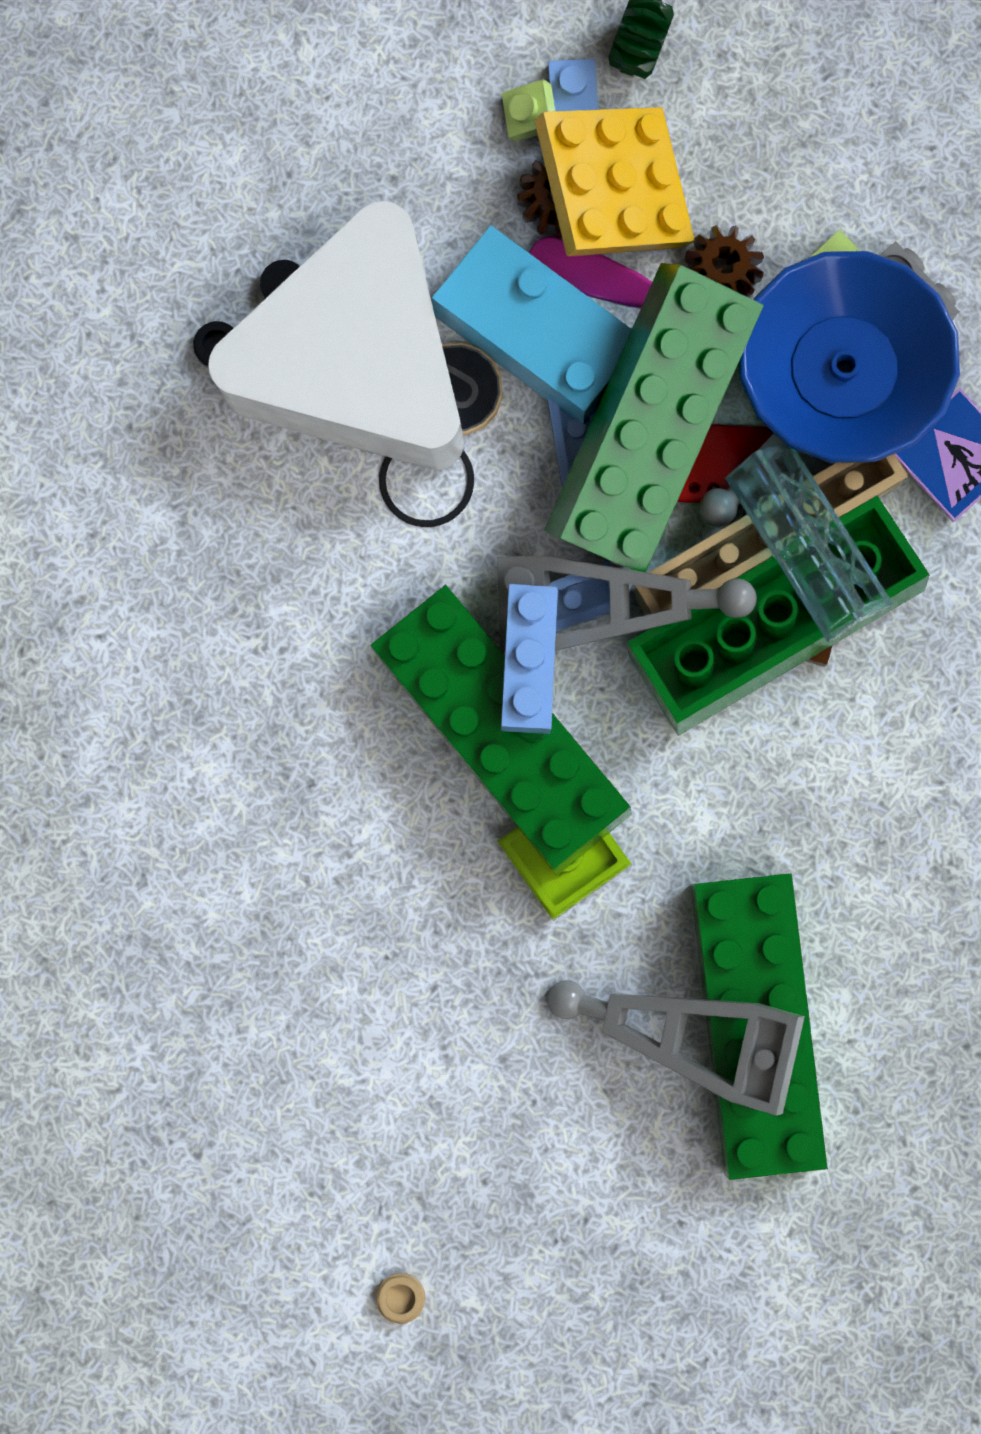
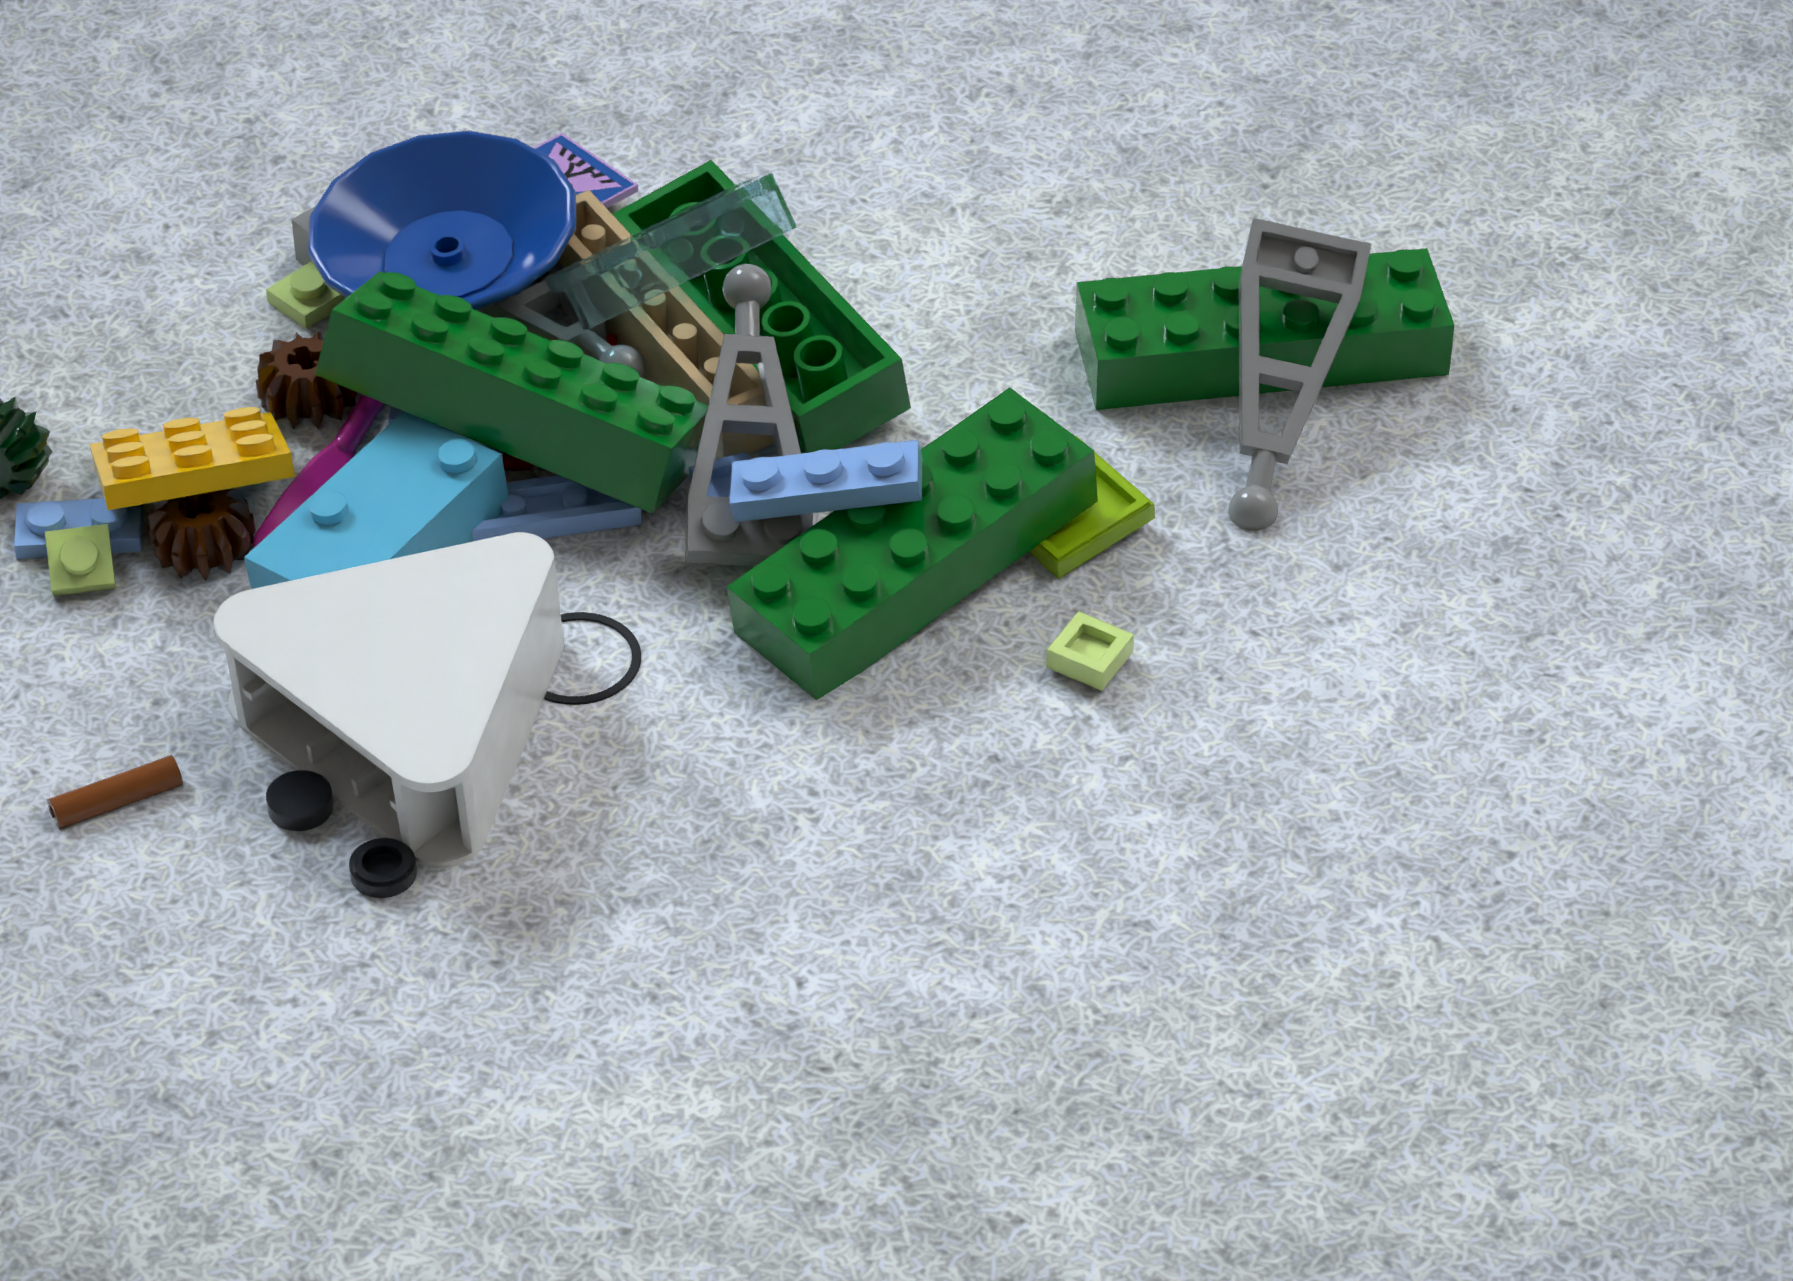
camera: 95 degrees left, 40 degrees down
(298, 154) = (115, 792): none -> dark orange piece
(400, 1298) = (1658, 647): tan tile -> none
(405, 860) = (1090, 650): none -> yellowish green plate

